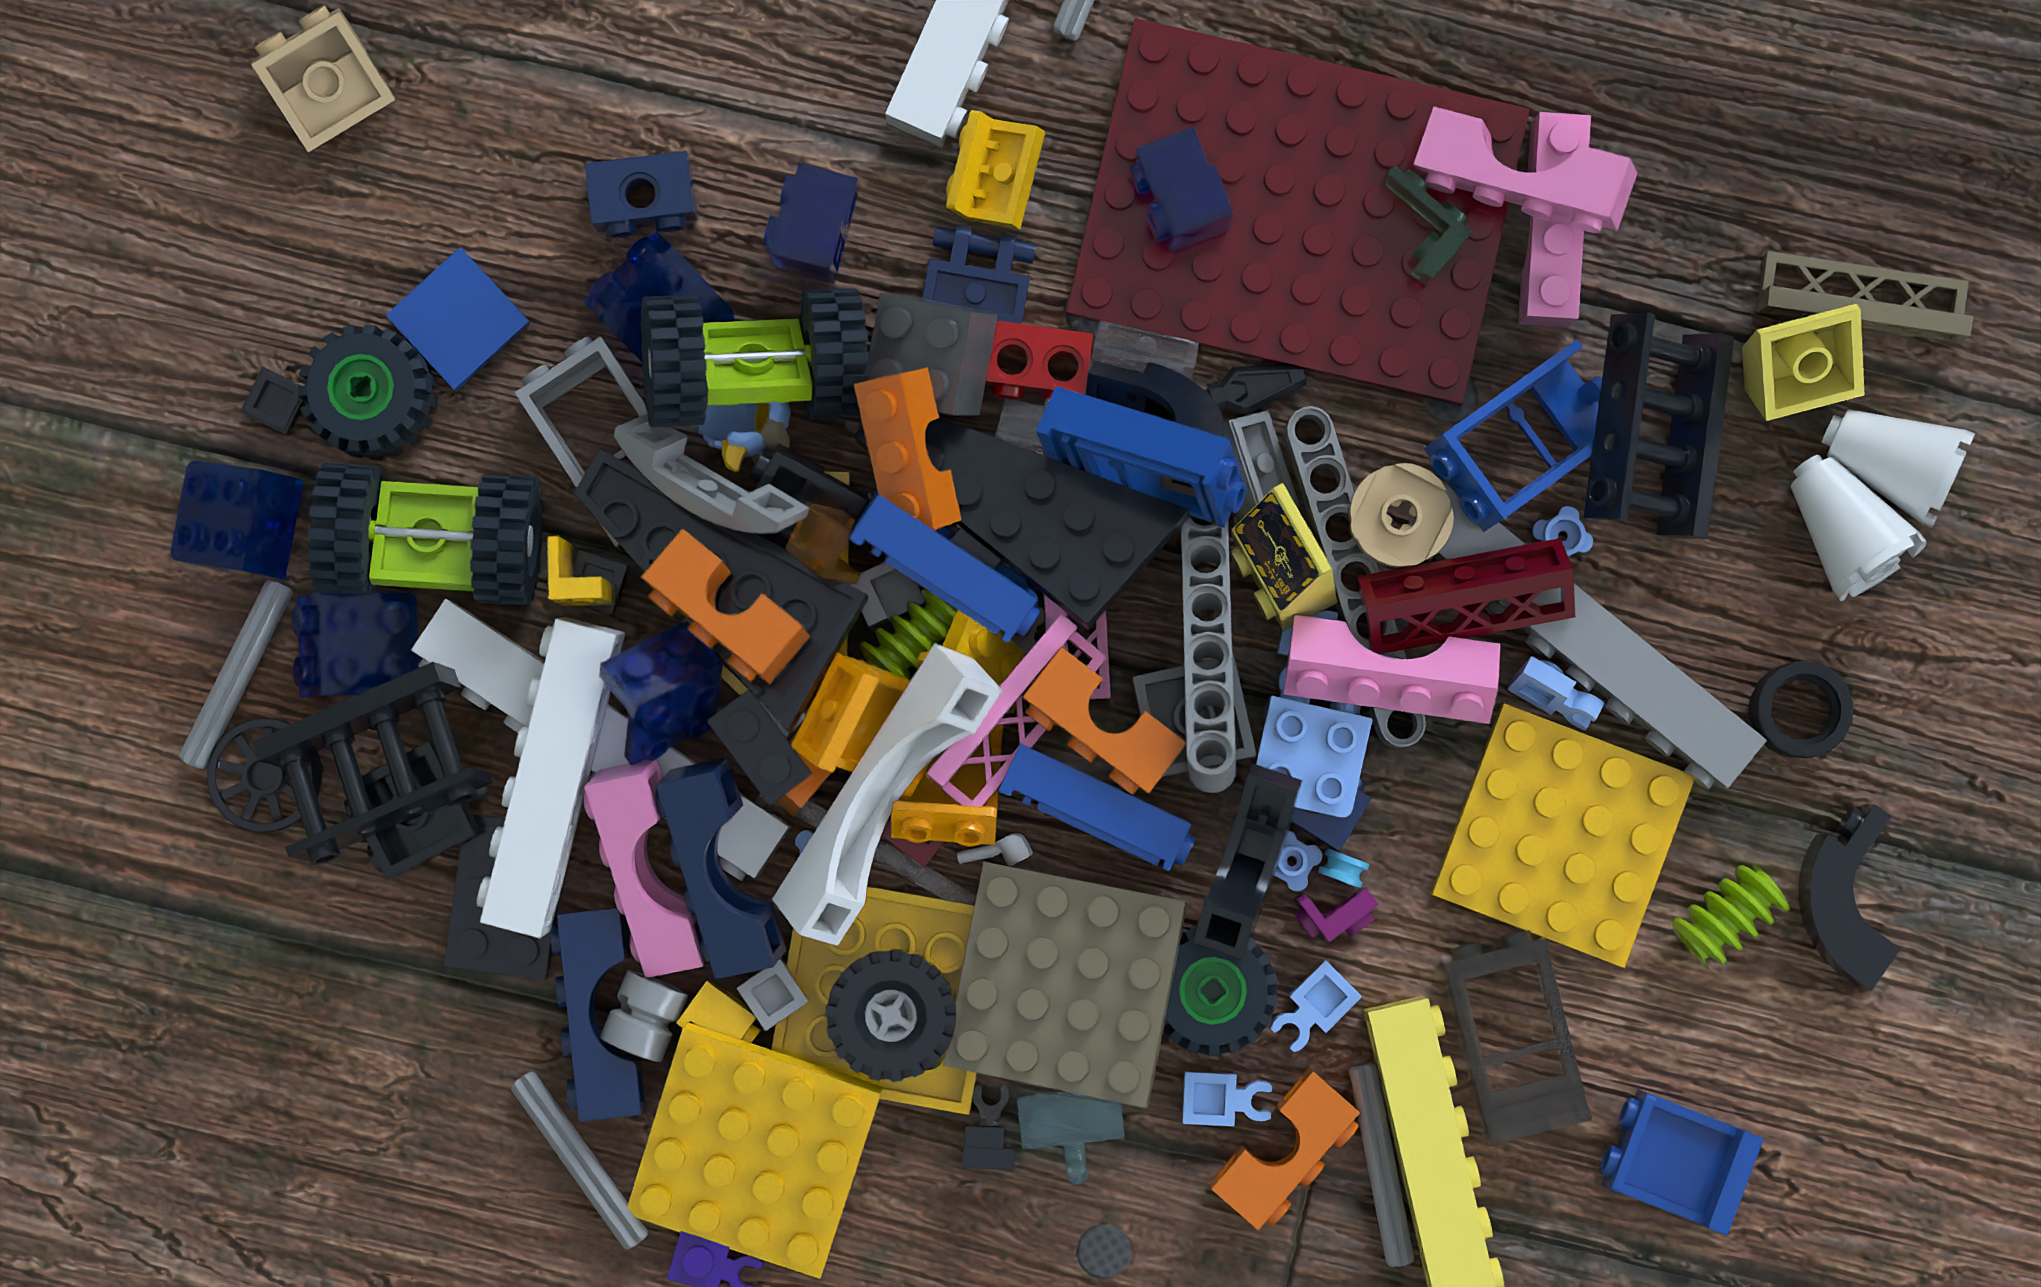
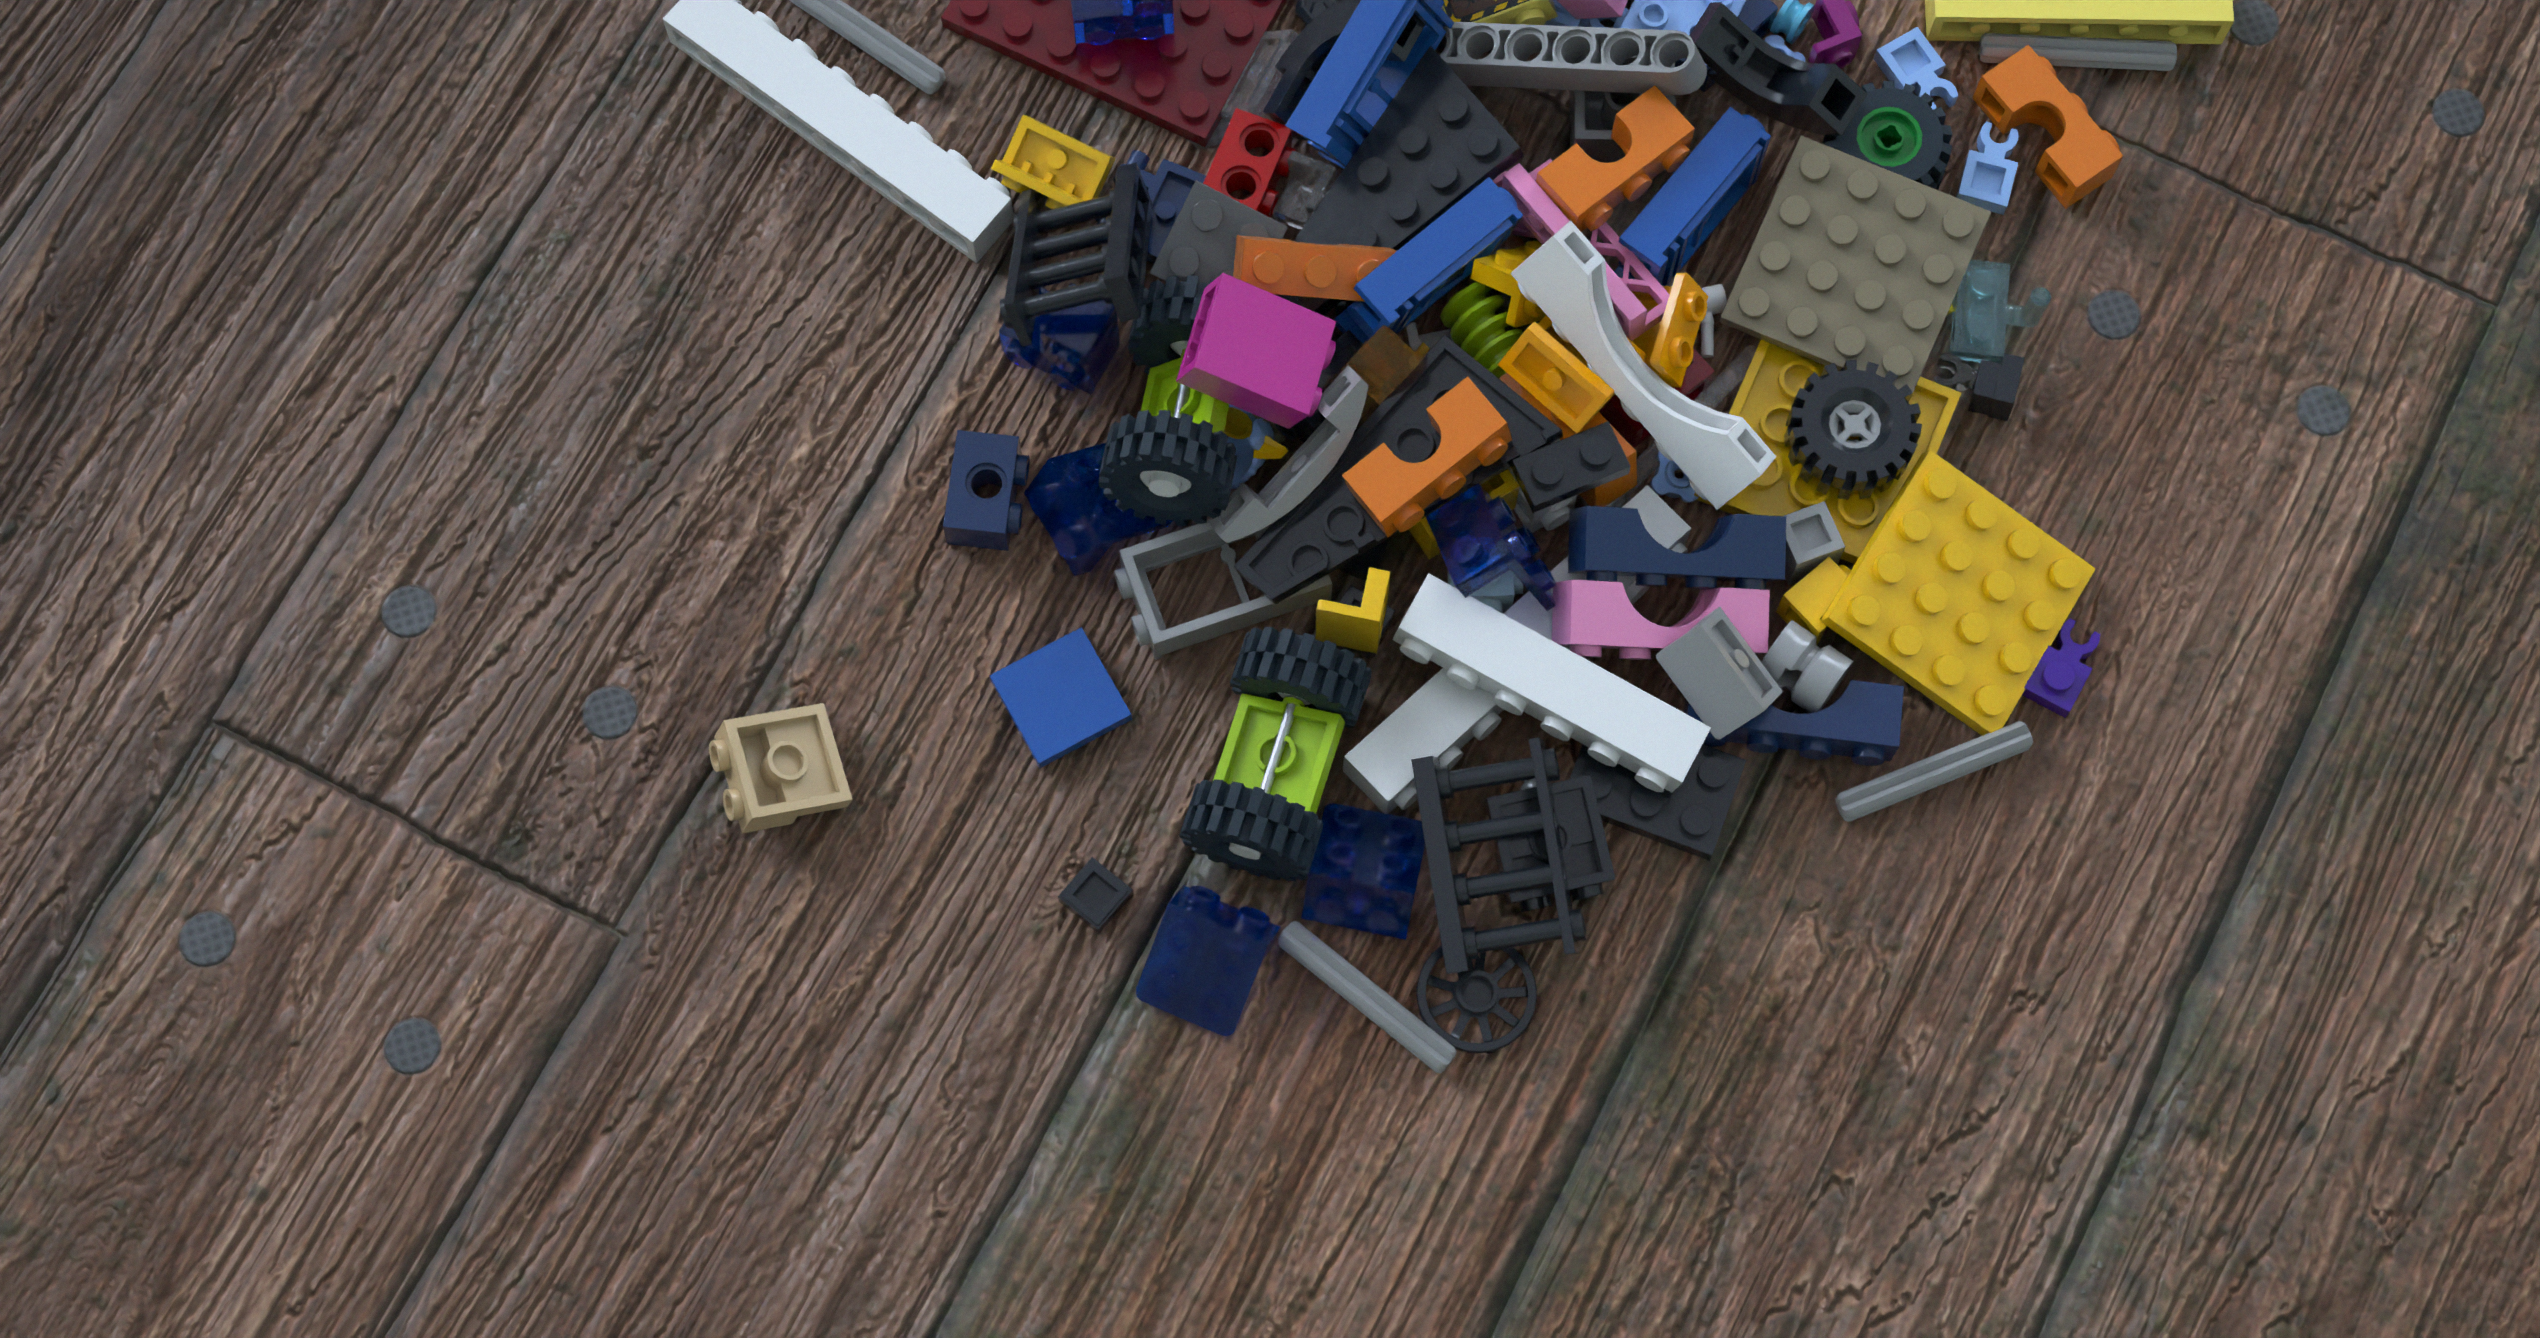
camera: 75 degrees left, 15 degrees down
(367, 392) = (1114, 791): black wheel -> none
(600, 937) = (1719, 674): none -> light grey panel
(794, 417) = (1257, 351): none -> dark pink brick
(869, 260) = (1121, 259): none -> black fence

